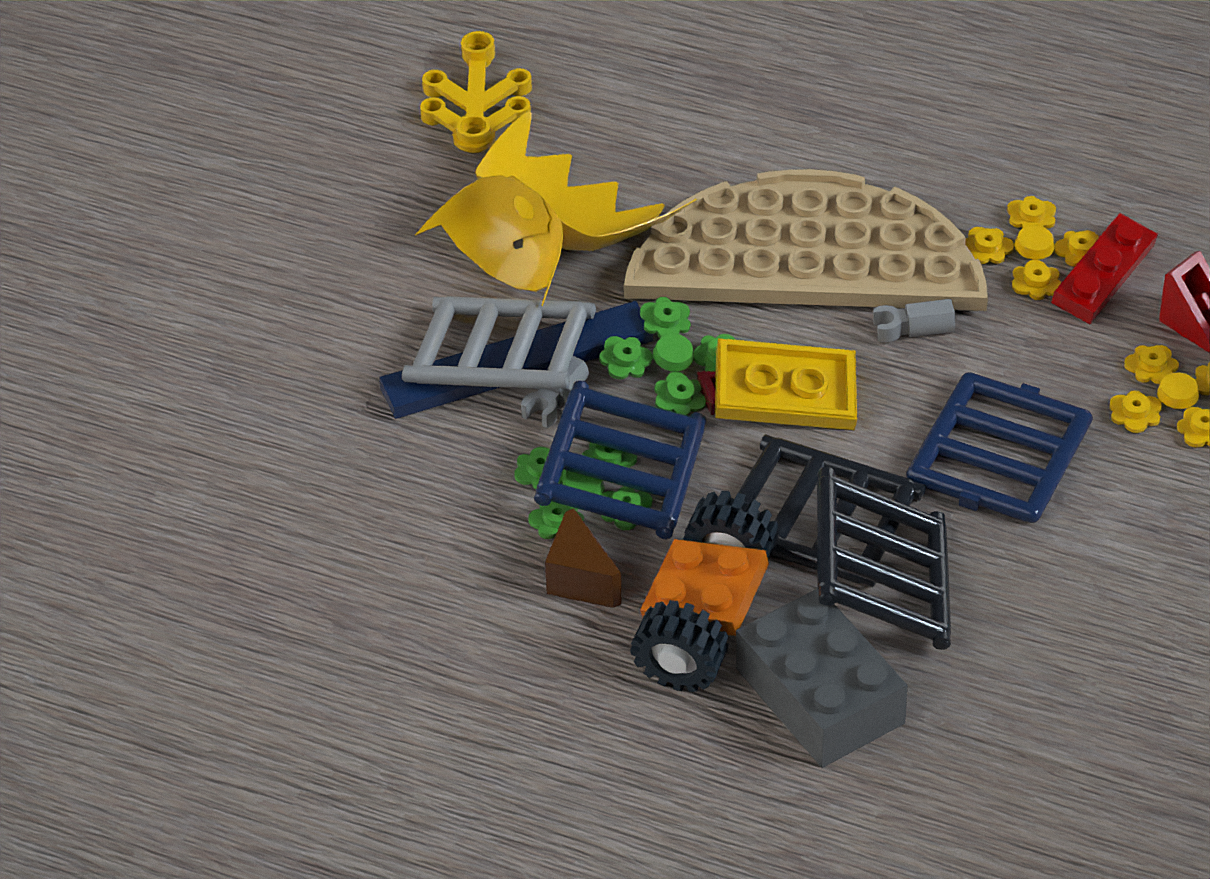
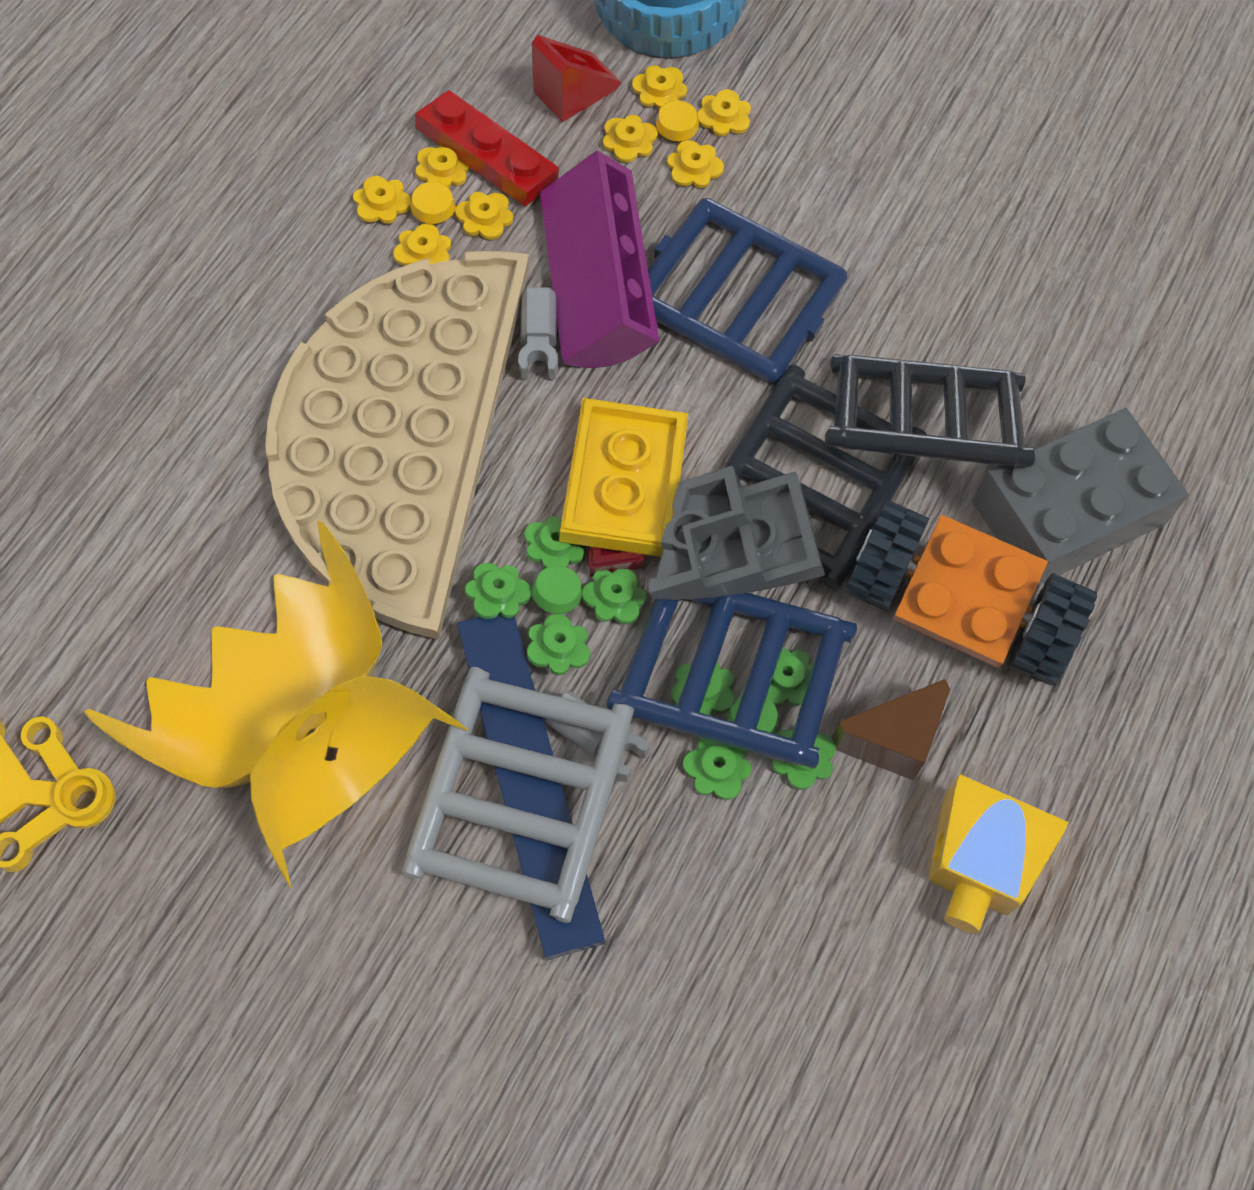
camera: 90 degrees left, 20 degrees up
(483, 623) = (989, 851): none -> yellow torso
(735, 444) = (735, 538): none -> dark grey slope
(993, 344) = (598, 264): none -> magenta brick

